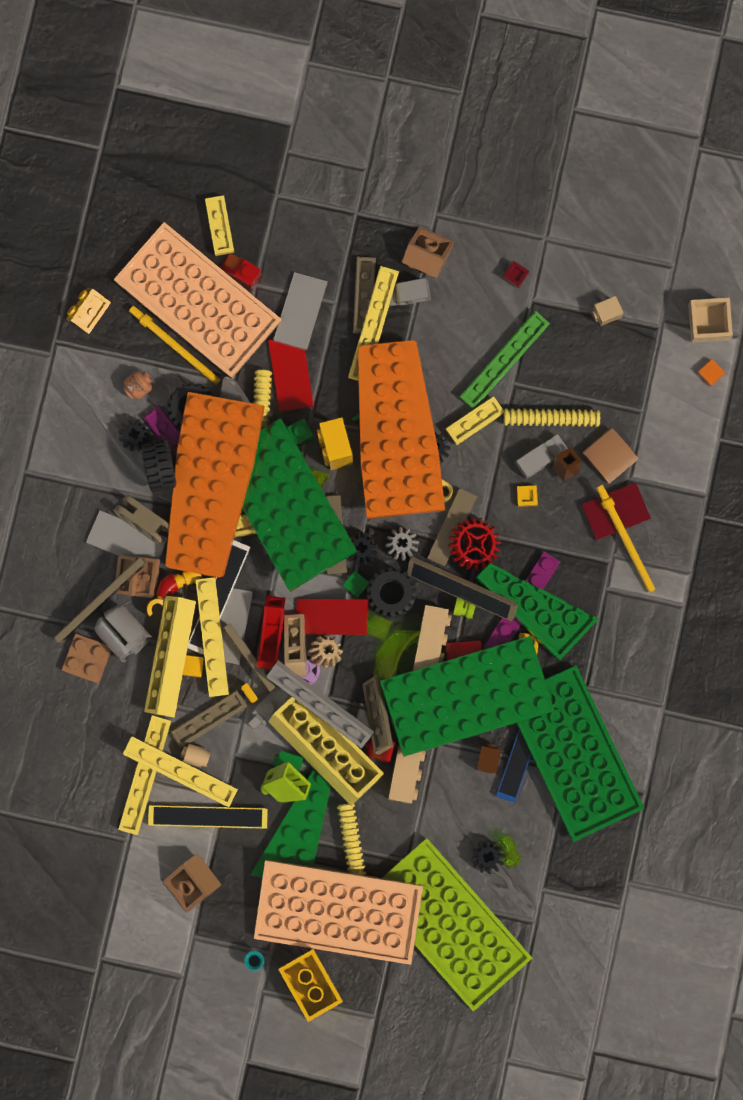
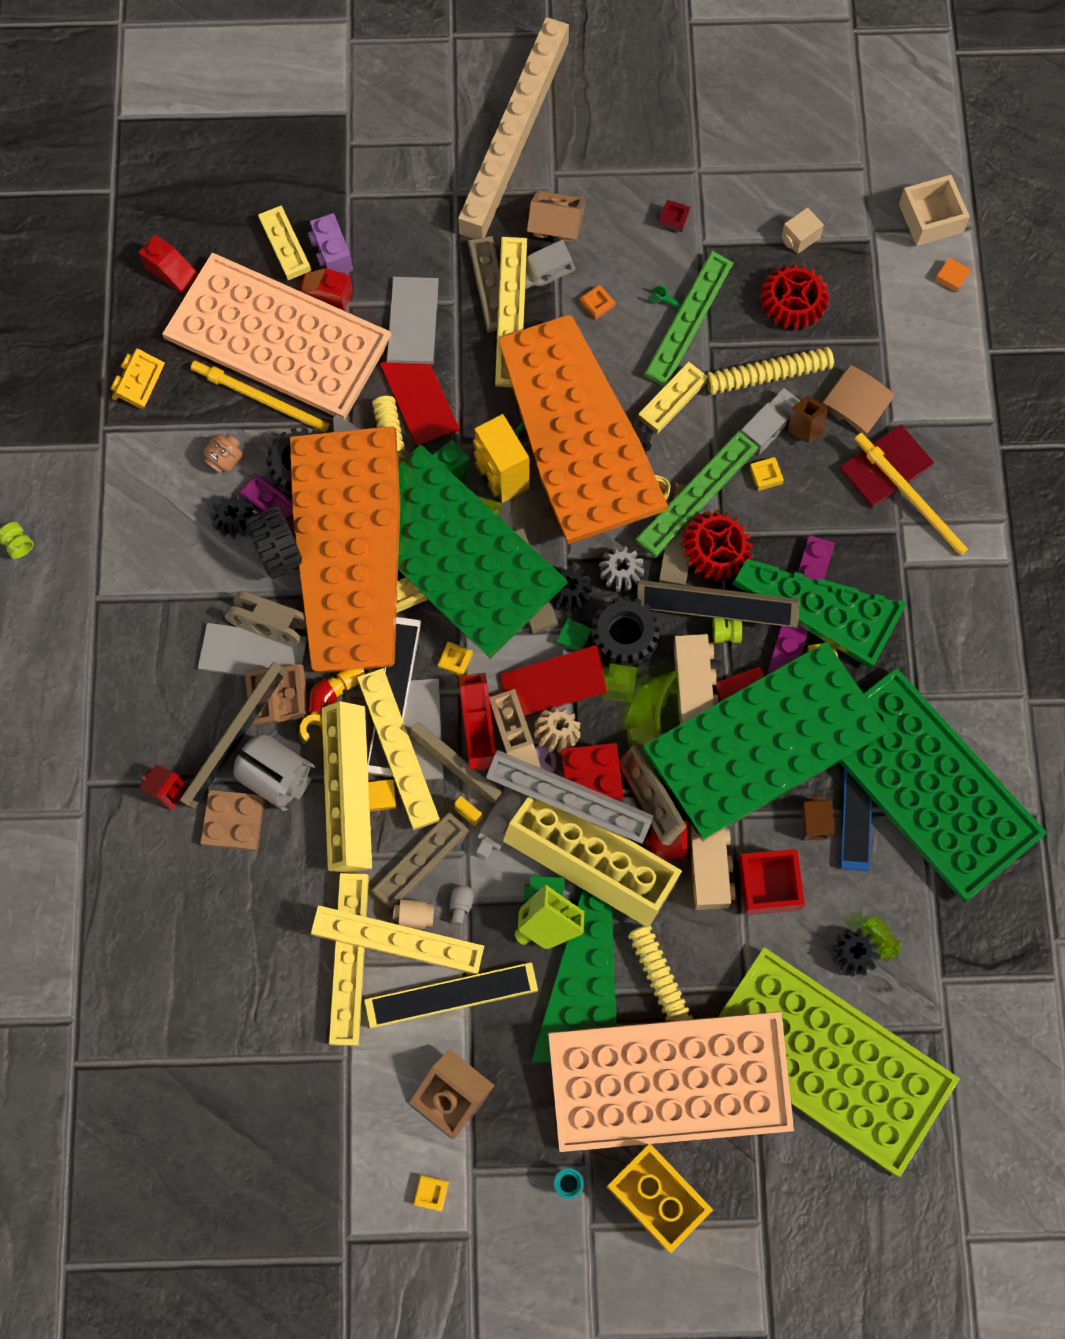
camera: 15 degrees left, 10 degrees down
(44, 623) = (163, 786): none -> red slope
(129, 223) = (167, 264): none -> red slope
(163, 943) = (431, 1193): none -> yellow tile
(229, 755) = (461, 903): none -> light grey cylinder
(253, 238) = (331, 244): none -> medium lavender brick
(268, 580) = (455, 659): none -> yellow tile
(343, 688) = (594, 768): none -> red piece
(414, 172) = (513, 129): none -> tan brick
(440, 329) = (597, 302): none -> orange tile
(443, 795) = (771, 882): none -> red piece
(471, 500) = (697, 494): none -> bright green tile
(490, 337) = (662, 294): none -> green hand
(602, 356) = (794, 305): none -> red gear

